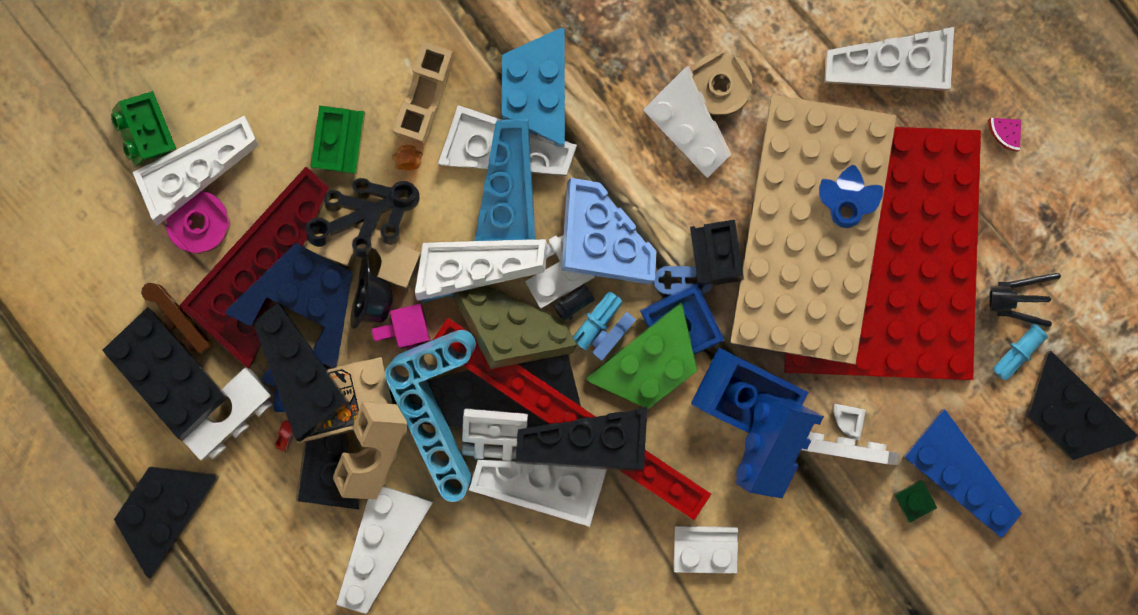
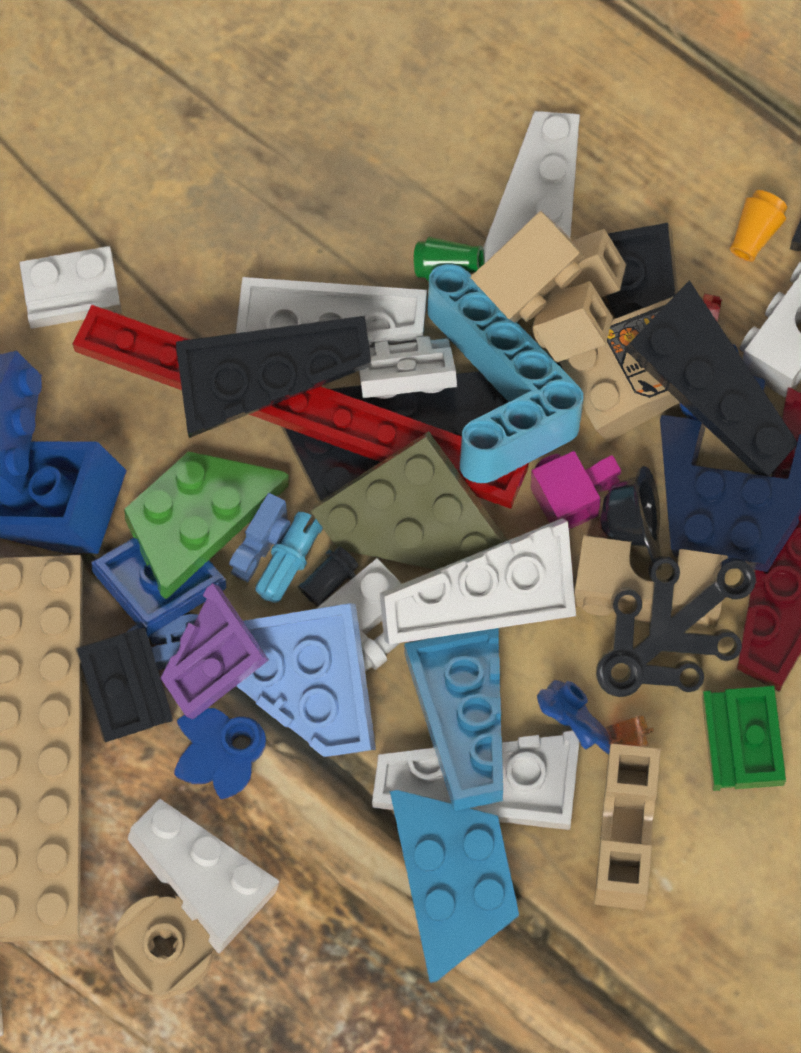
camera: 170 degrees right, 20 degrees down
(237, 493) = (758, 223): none -> light orange cone
(398, 468) = (529, 268): none -> tan slope
(443, 178) = (567, 705): none -> blue plate
(455, 514) = (439, 251): none -> green cone
(658, 258) = (212, 656): none -> medium lavender wing
(669, 202) = (212, 751): none -> blue plate

